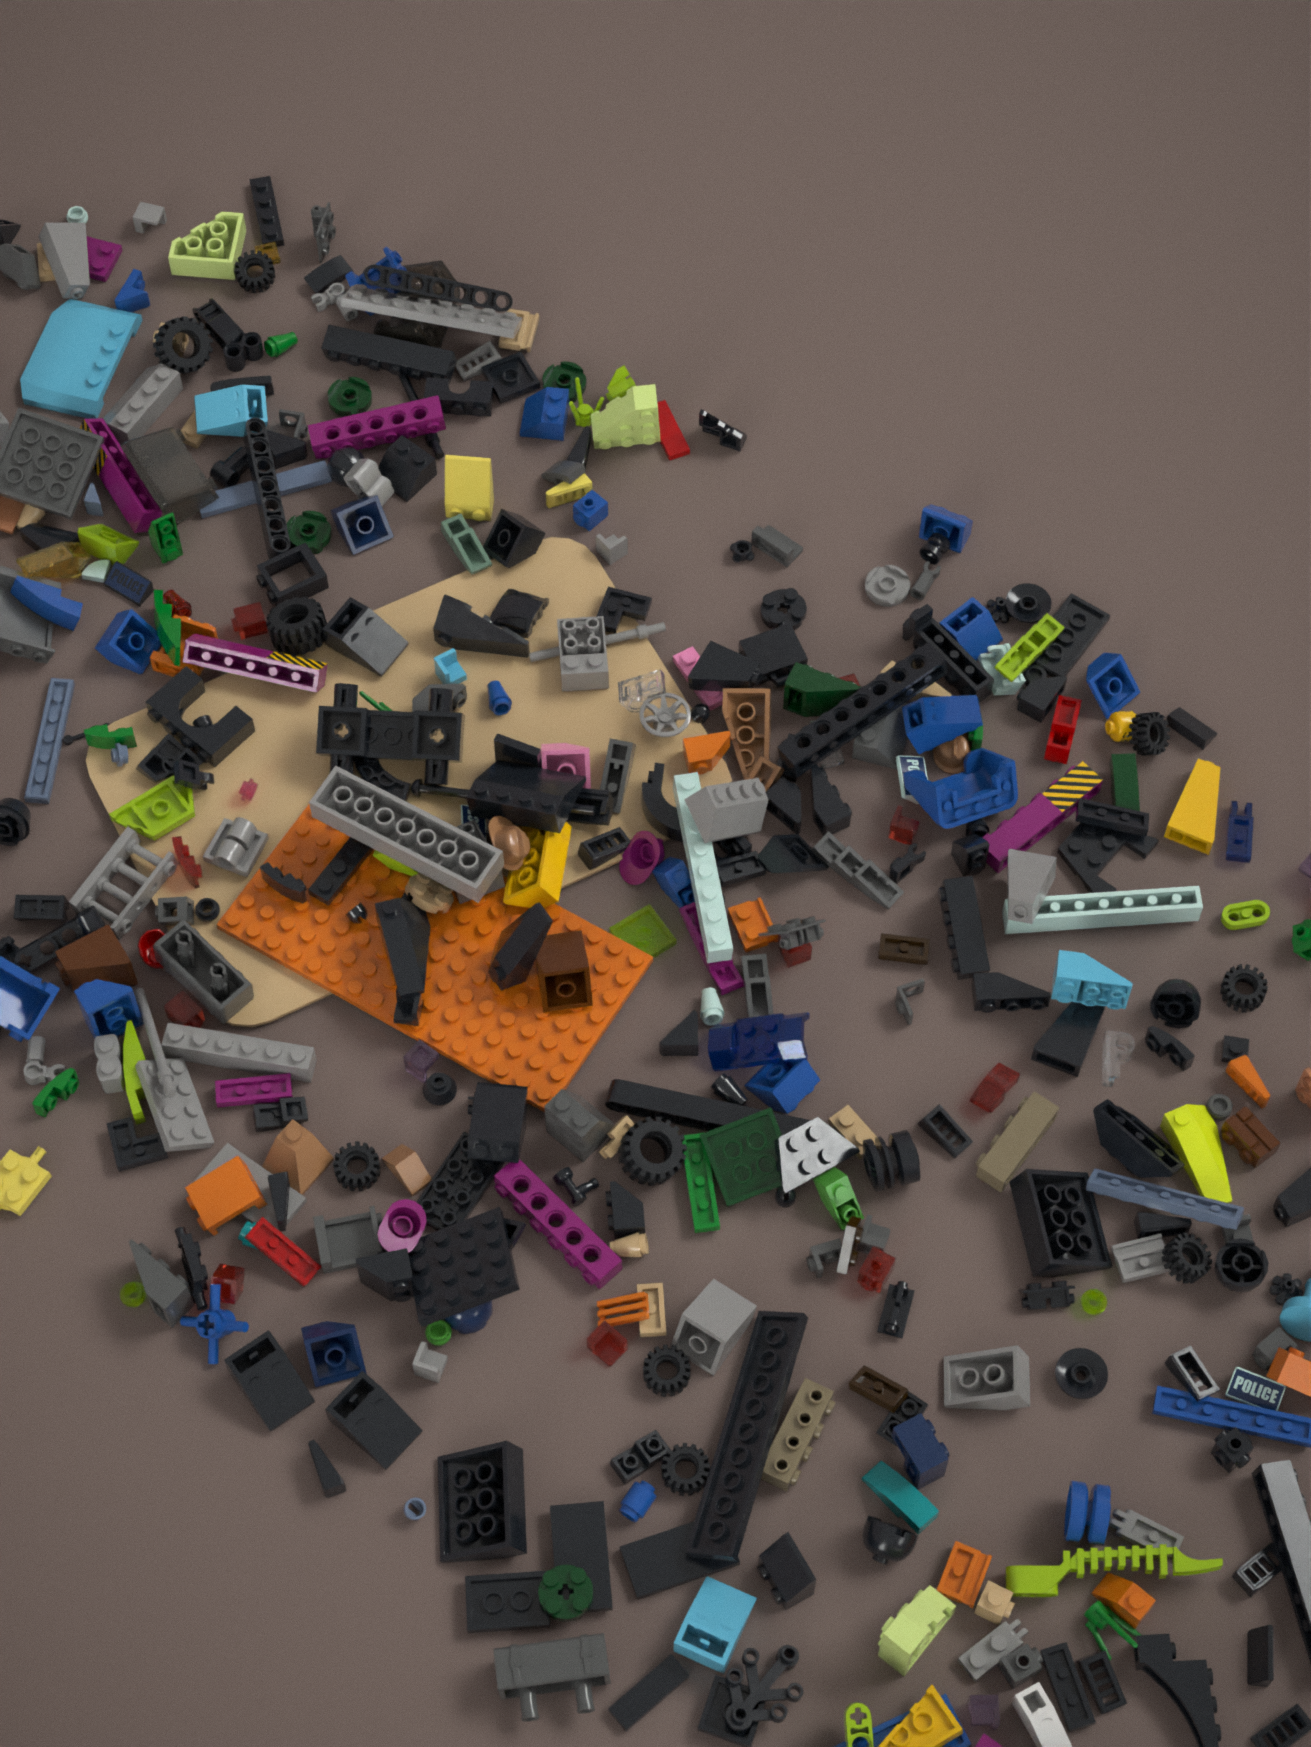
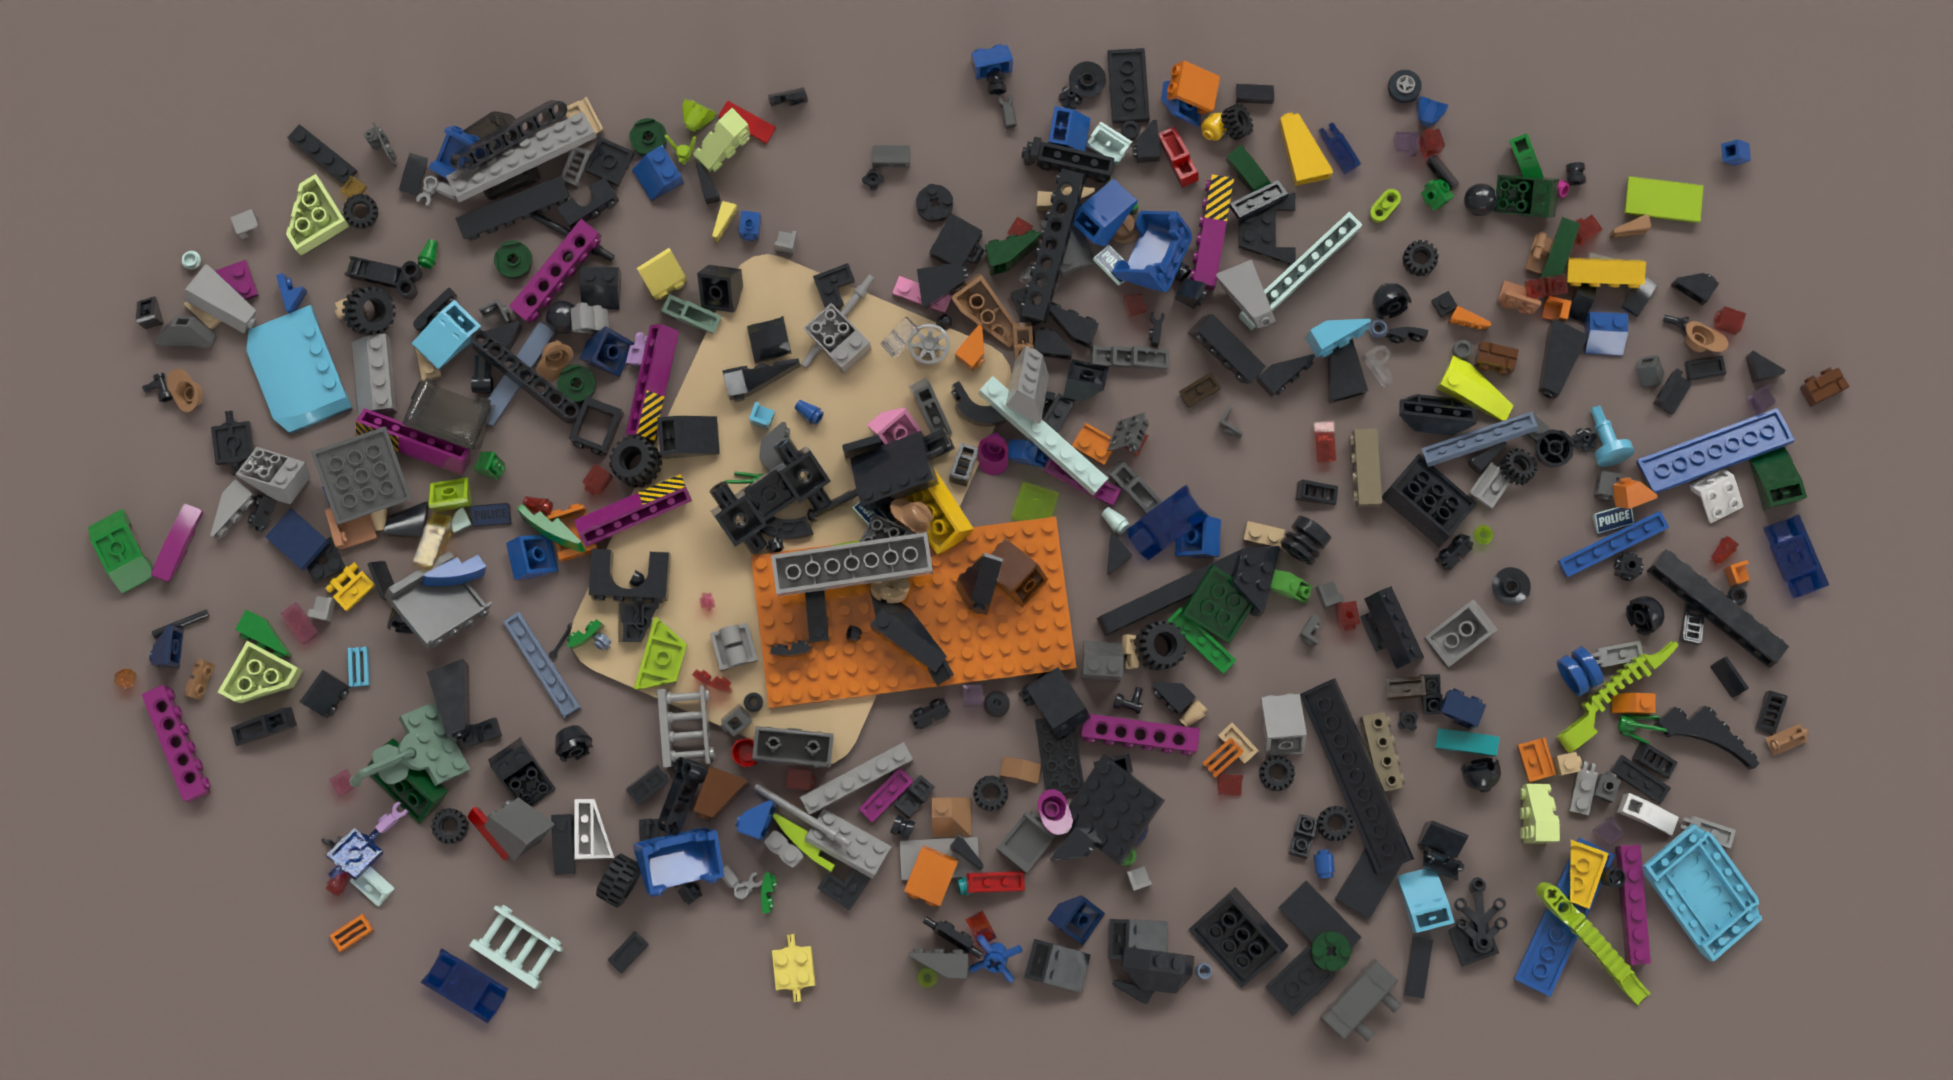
camera: 40 degrees left, 20 degrees up
(92, 501) = (412, 474): sand blue slope -> none
(188, 775) = (665, 623): black plate -> none
(241, 1131) = (902, 827): none -> black wheel
(304, 496) = (554, 359): none -> medium nougat piece
(368, 1462) = (1157, 969): none -> black wedge
(375, 1050) = (937, 709): none -> black hinge
(380, 571) = (652, 382): none -> magenta brick
(387, 544) = (637, 350): none -> lavender plate
(564, 471) = (709, 209): dark grey slope -> none
(728, 1090) = (1171, 568): black cone -> none
(759, 1591) = (1438, 863): none -> black hinge
(852, 1235) = (1322, 609): plate -> none
(854, 1418) = (1413, 720): none -> black plate
(887, 585) = (985, 133): light grey tile -> none
(916, 1315) = (1394, 627): none -> black slope
(1029, 647) = (1117, 116): lime slope -> none
(1130, 671) = (1193, 86): none -> orange panel
(1144, 1017) = (1382, 324): none -> sand blue plate
(1175, 1365) = (1571, 543): black slope -> none
(1213, 1513) = (1645, 614): none -> black cylinder

